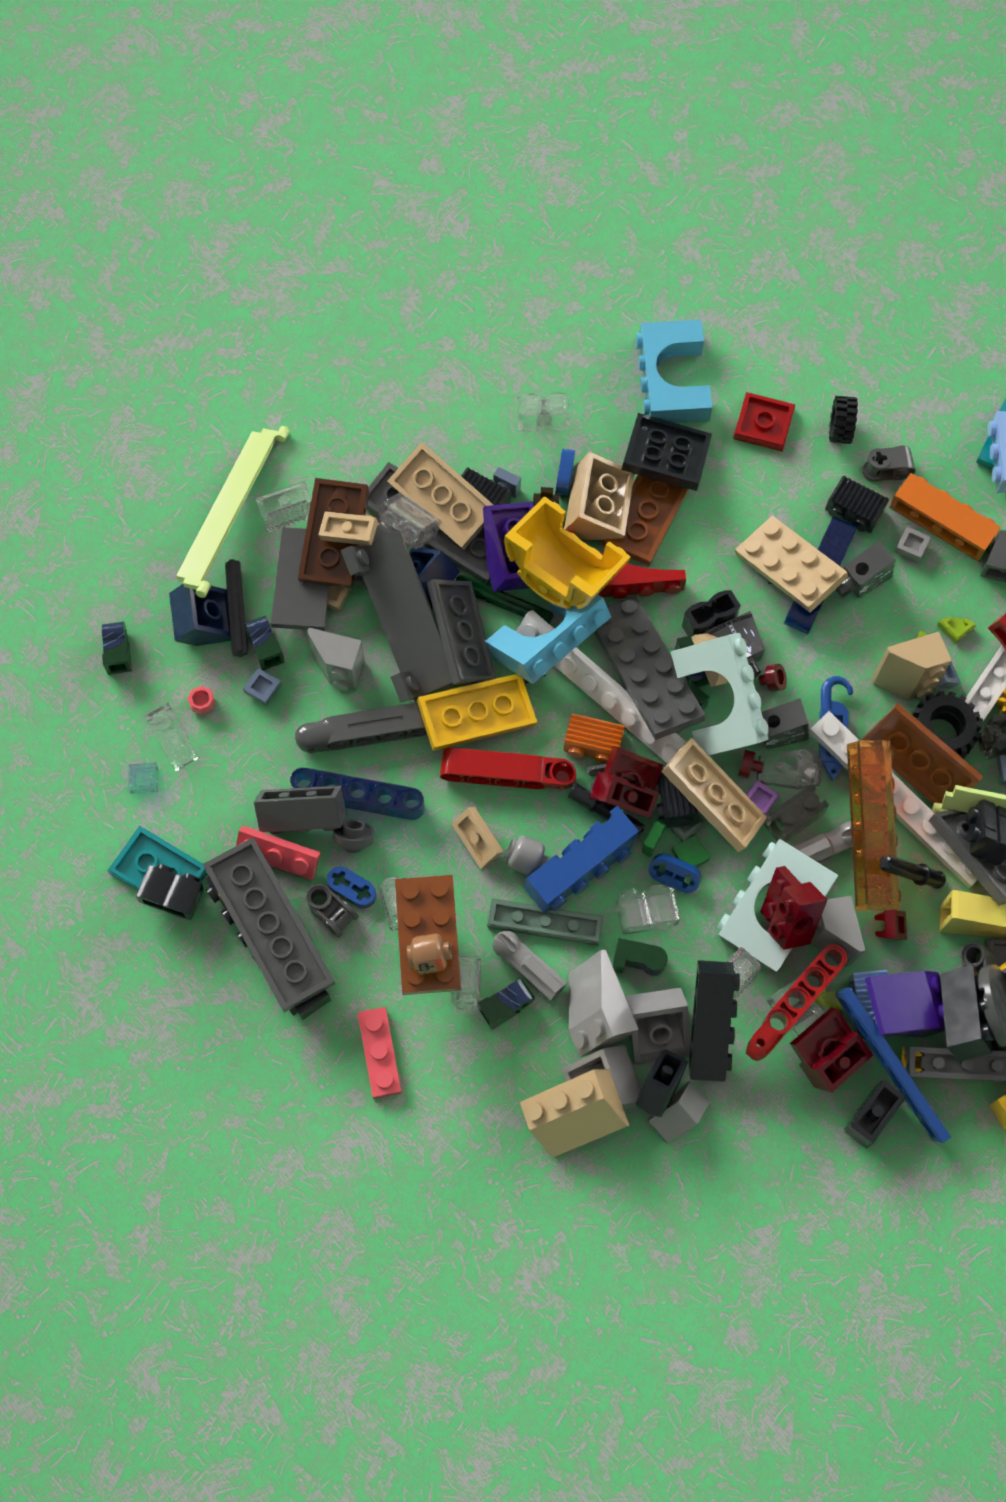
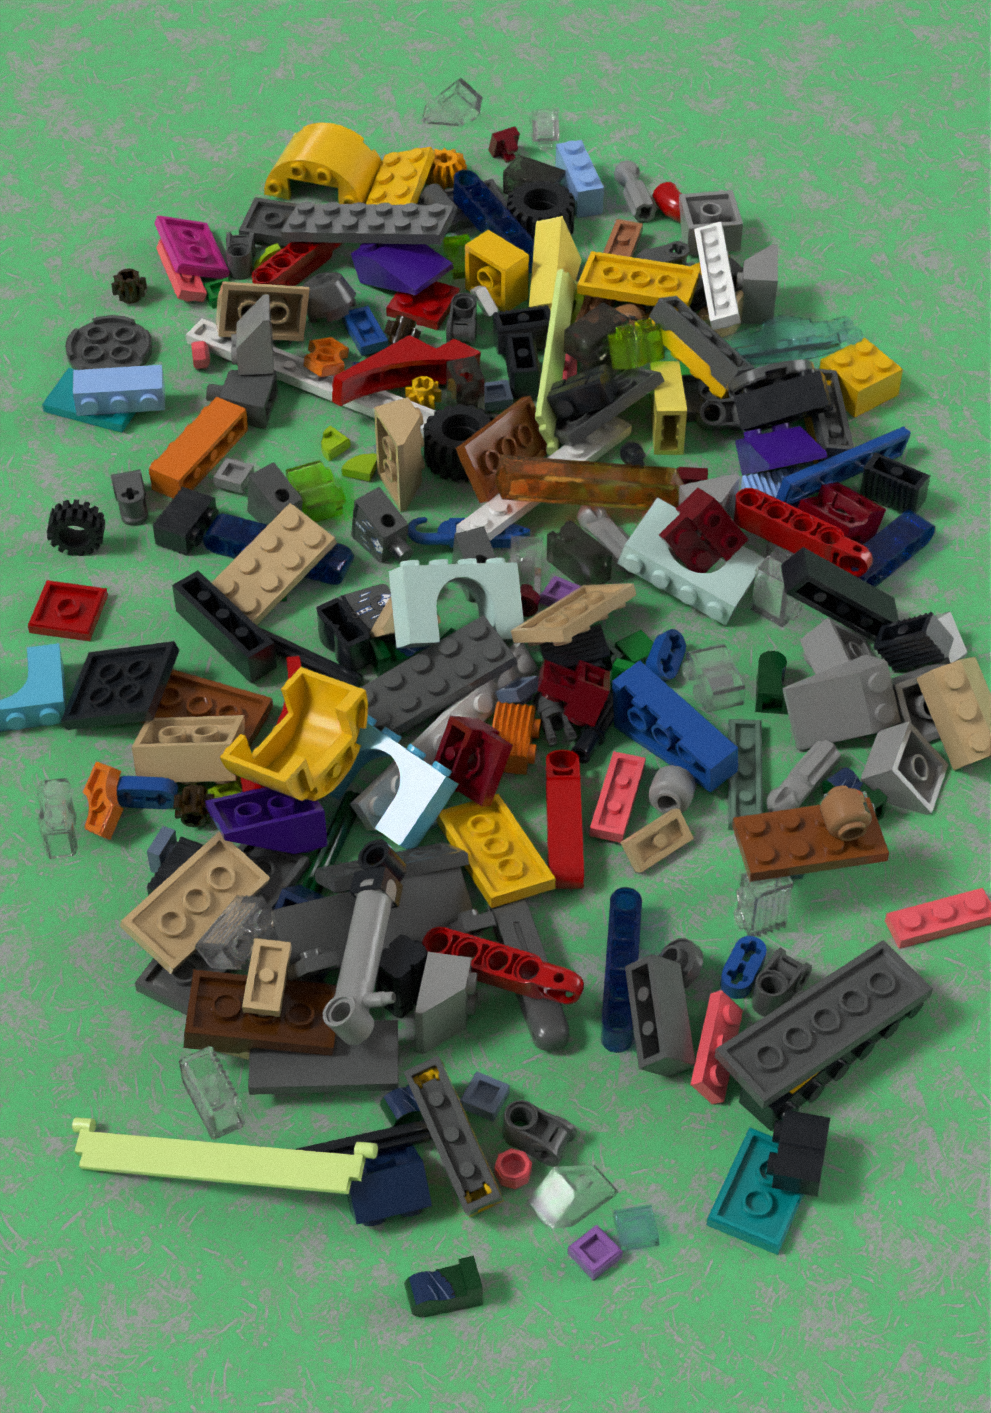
camera: 95 degrees left, 20 degrees down
(130, 748) = (595, 1252): none -> medium lavender tile
(215, 652) = (453, 1136): none -> dark grey piece
(220, 721) = (539, 1134): none -> dark grey piece
(354, 698) = (549, 983): none -> red piece
(360, 625) = (401, 973): none -> black brick
(408, 601) = (376, 892): none -> light grey piece
(527, 814) = (617, 797): none -> coral plate
(529, 1052) = (905, 768): none -> light grey slope
(558, 694) = (474, 757): none -> dark red brick
(569, 440) = (102, 800): none -> orange tile
(638, 743) = (518, 690): none -> sand blue plate
(698, 591) = (314, 661): none -> black axle
(726, 527) = (224, 626): none -> black brick
(787, 1086) = (896, 545): none -> clear blue beam
(832, 652) = (380, 527): none -> dark grey torso
(888, 606) = (317, 489): none -> clear neon green brick

